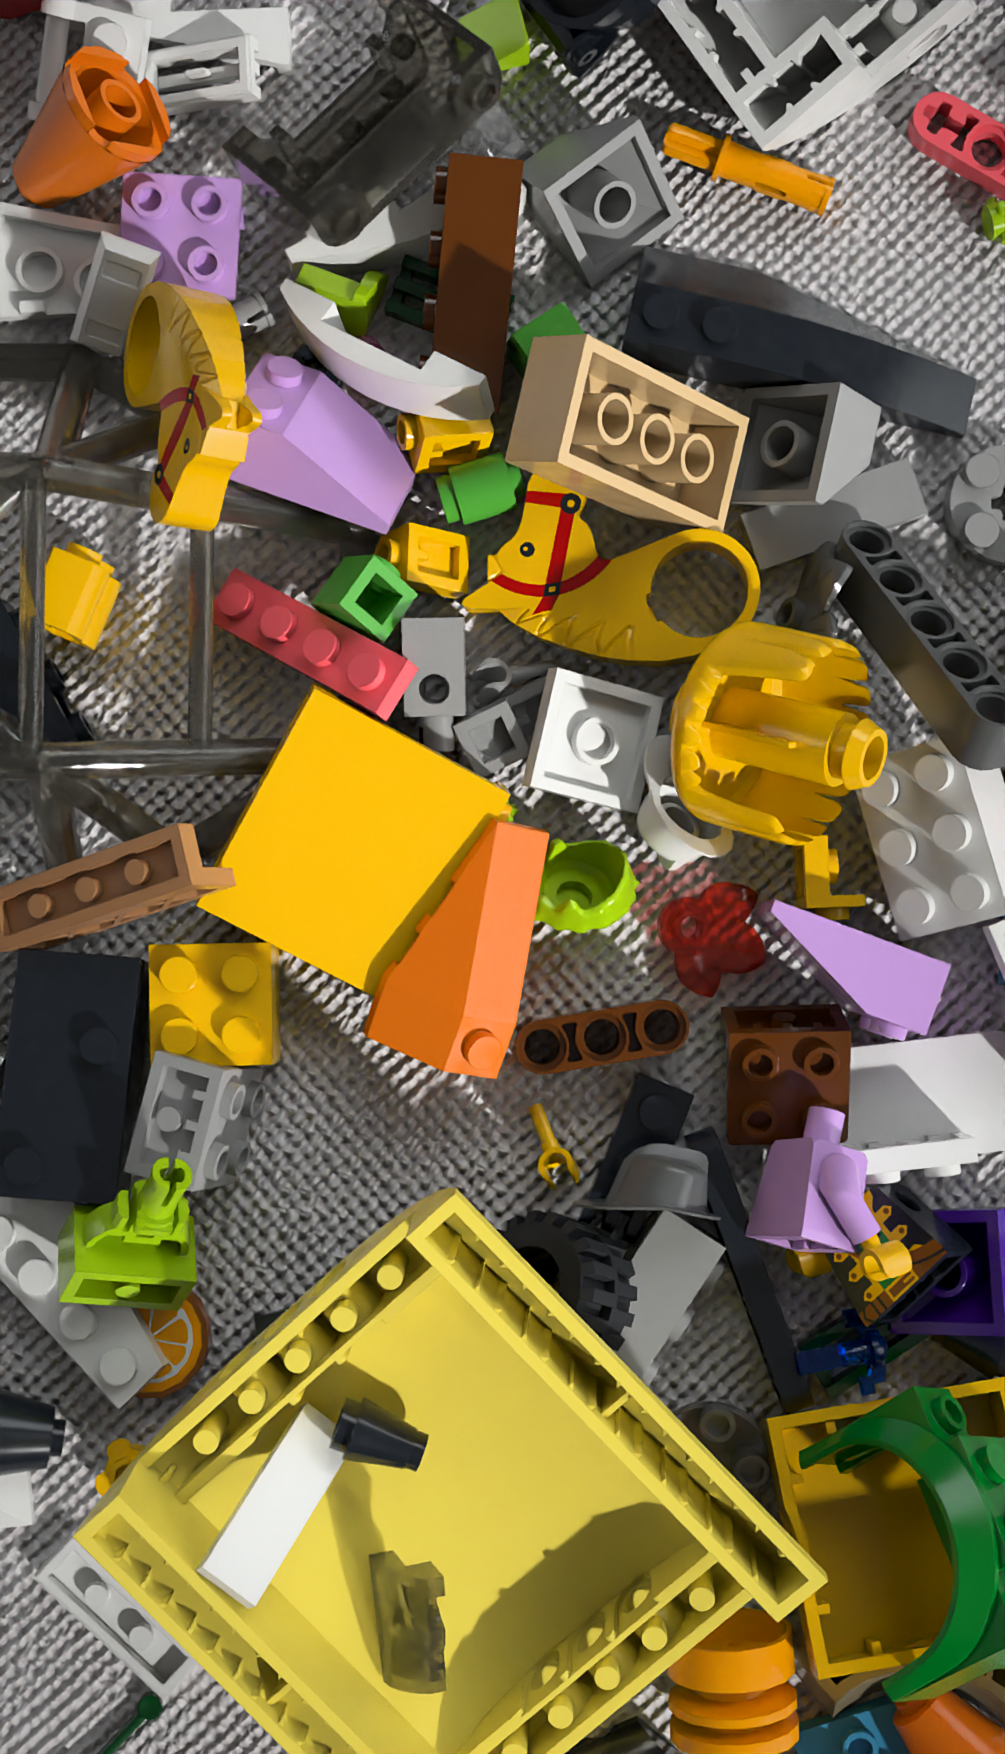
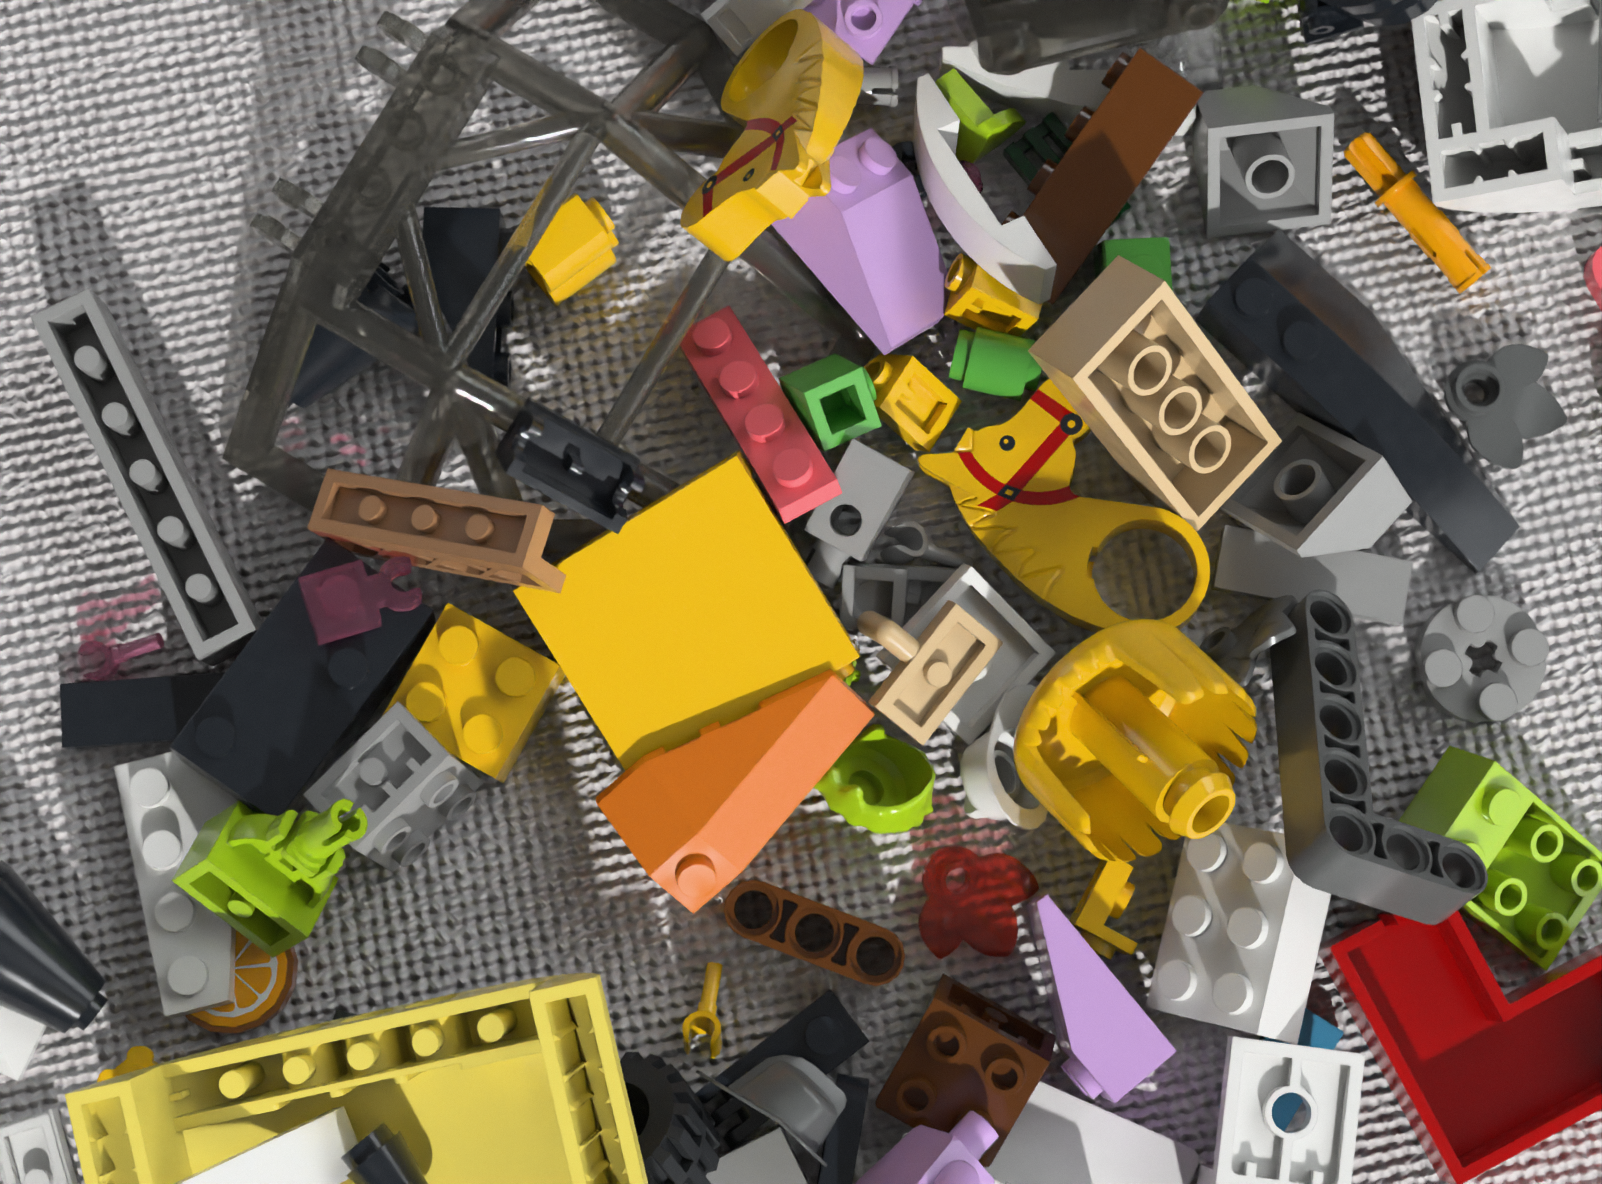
camera: 30 degrees right, 5 degrees down
(66, 992) = (348, 601): none -> clear pink plate
(181, 775) = (570, 464): none -> black hinge
(574, 769) = (931, 669): none -> tan plate
(914, 282) = (1512, 403): none -> dark grey plate

